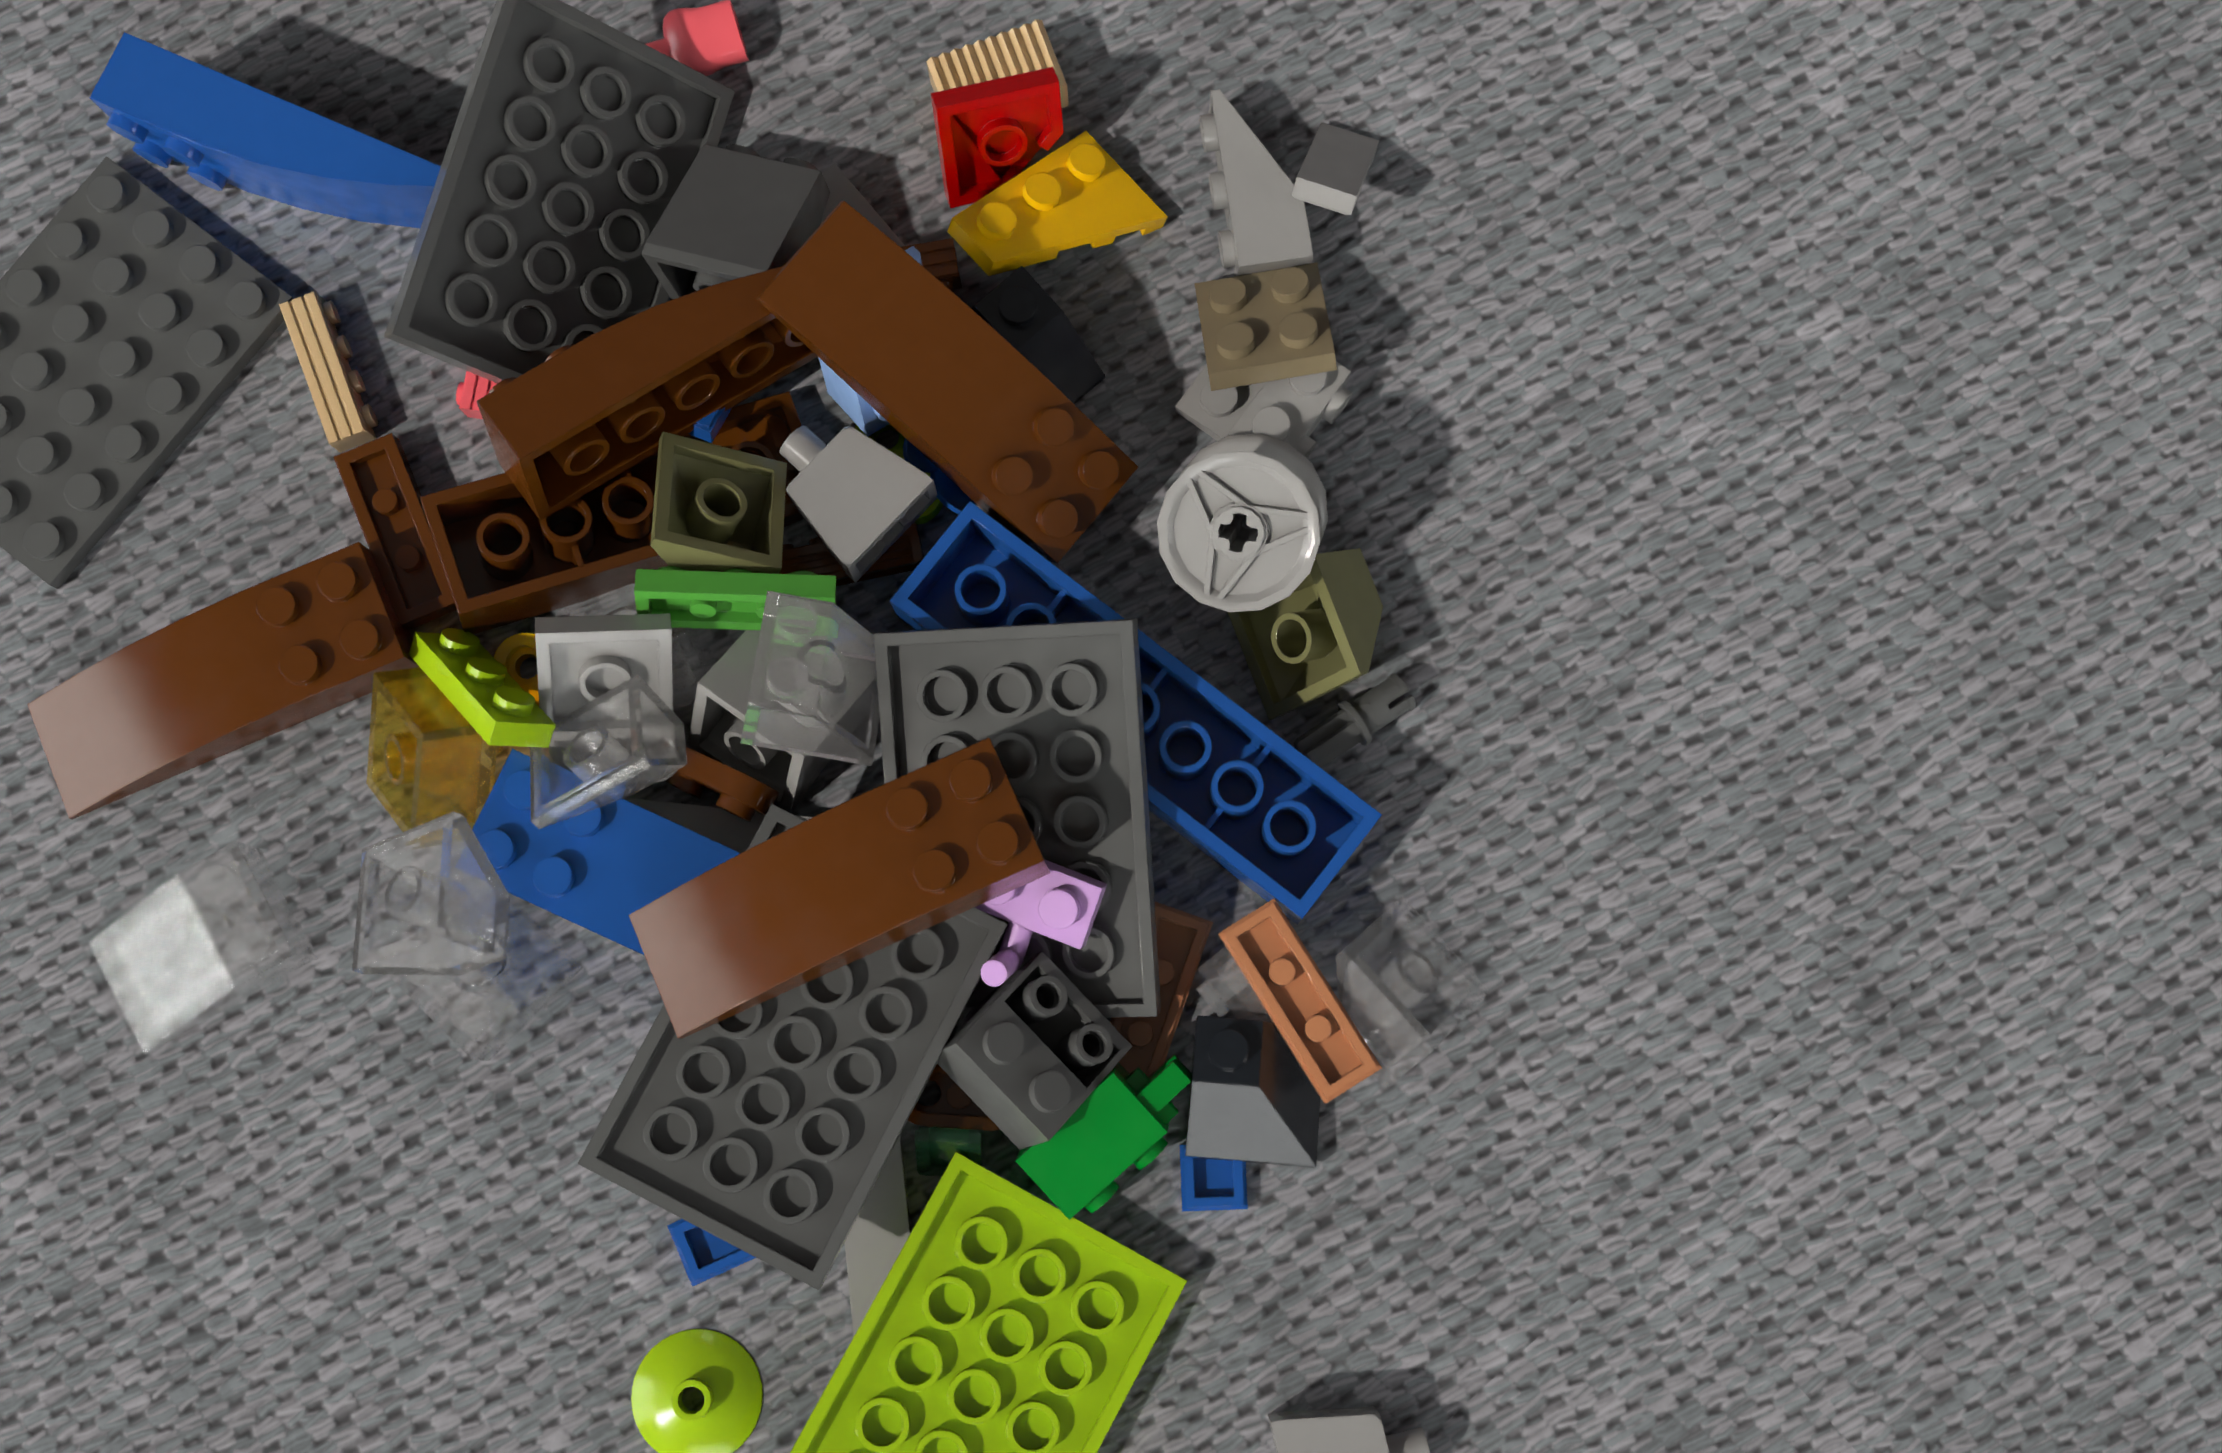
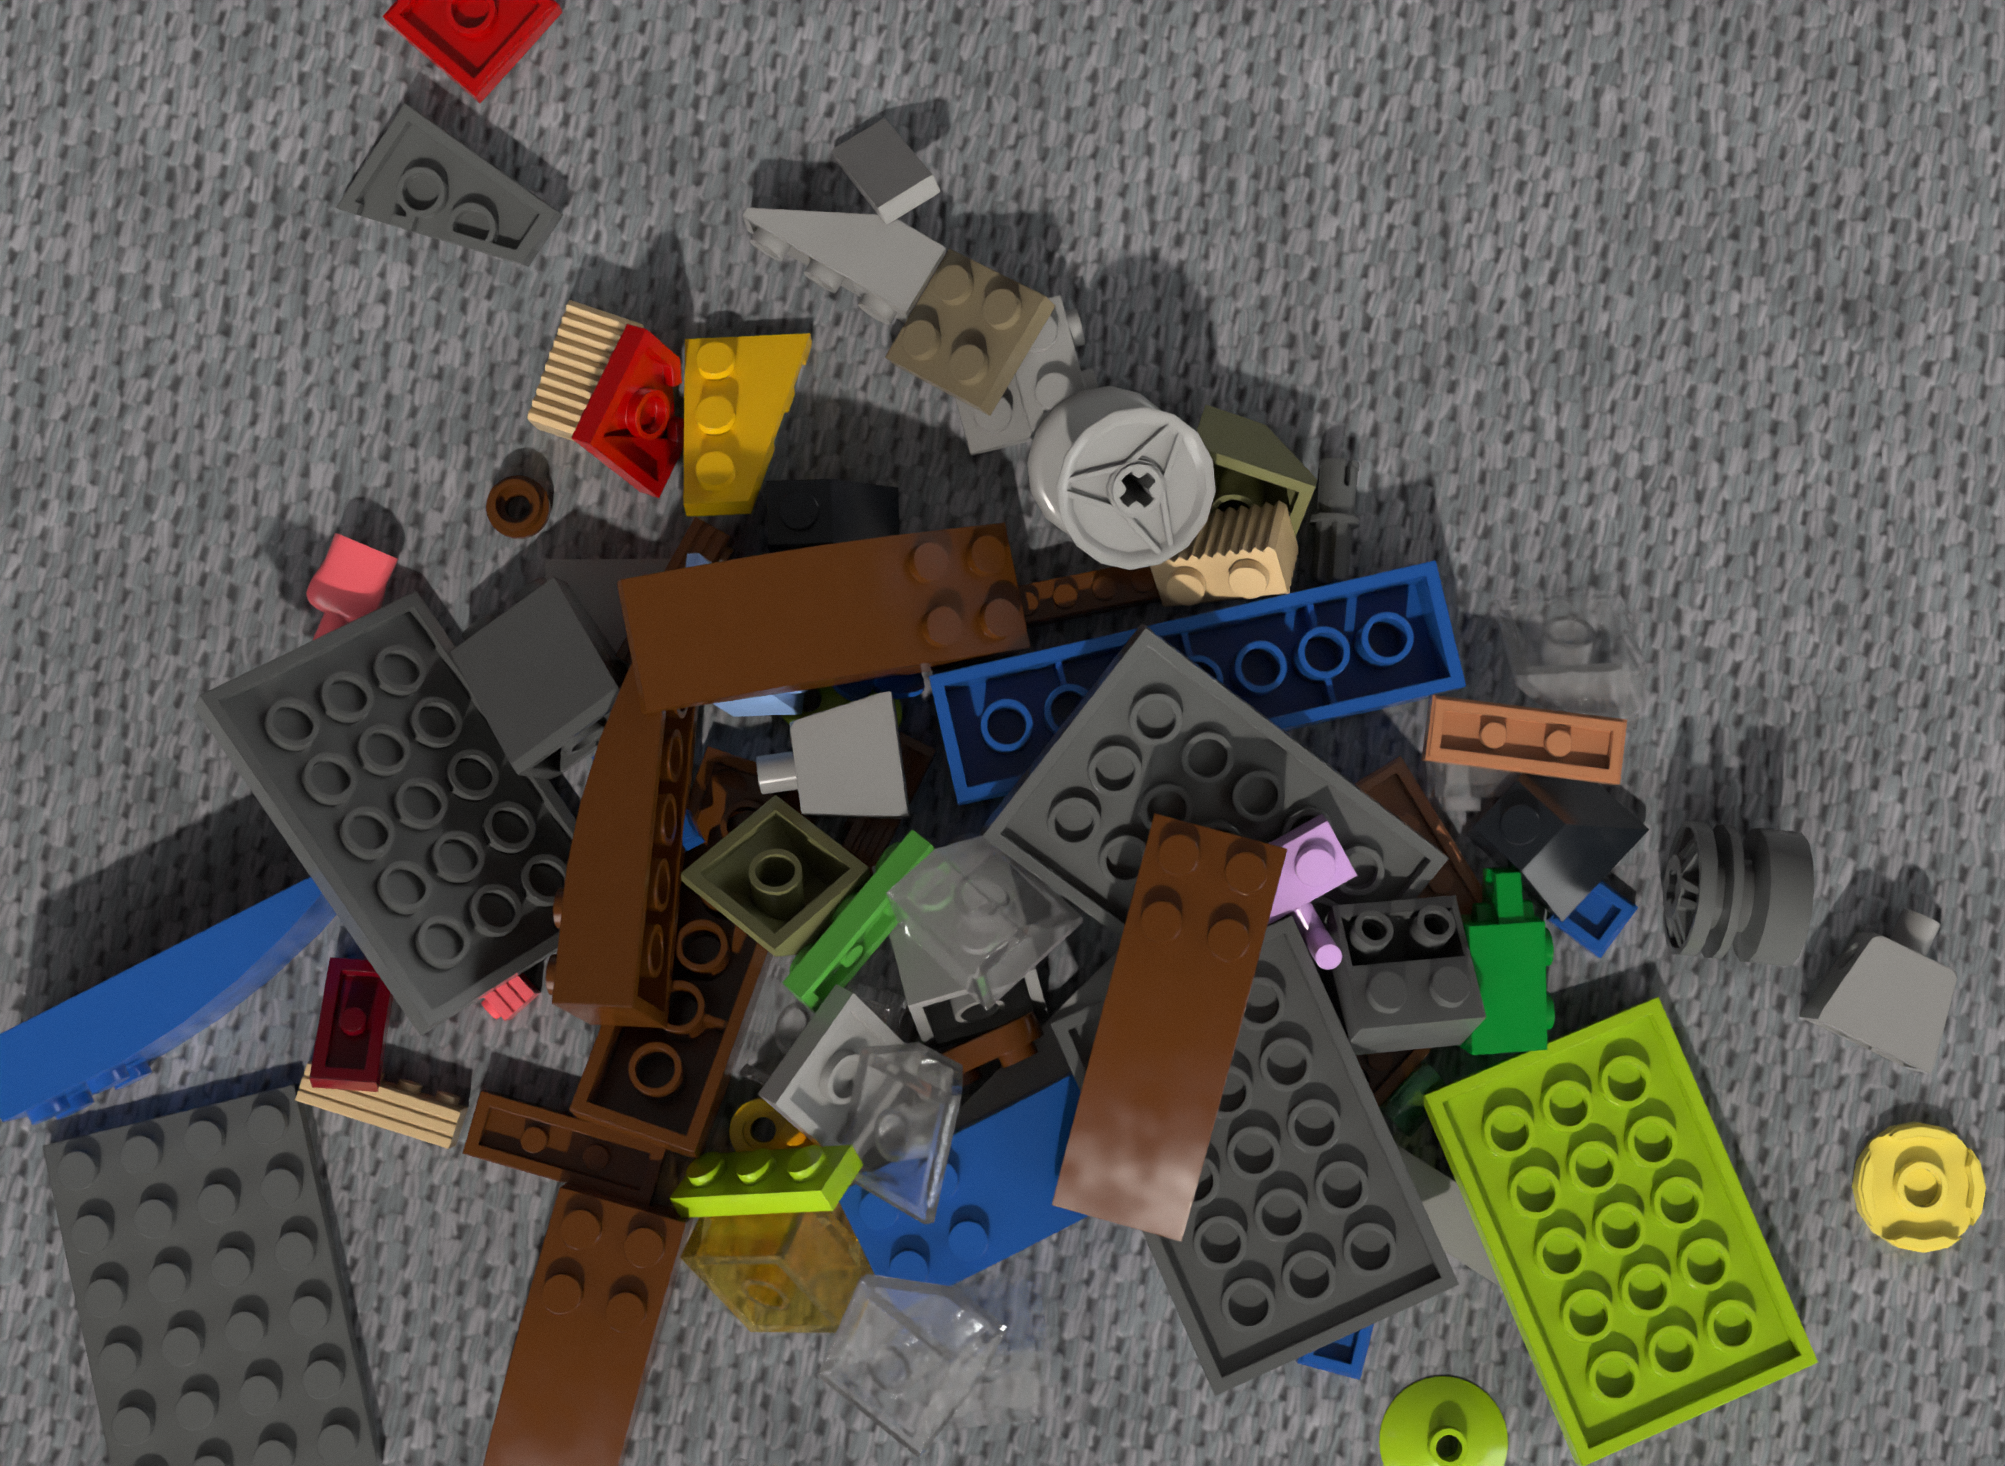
camera: 55 degrees left, 5 degrees up
(355, 303) = (351, 1028): none -> dark red plate
(855, 96) = (504, 493): none -> reddish brown plate
(1140, 580) = (1087, 594): none -> reddish brown piece
(1254, 658) = (1232, 558): none -> tan brick
(1322, 1278) = (1738, 893): none -> dark grey wheel

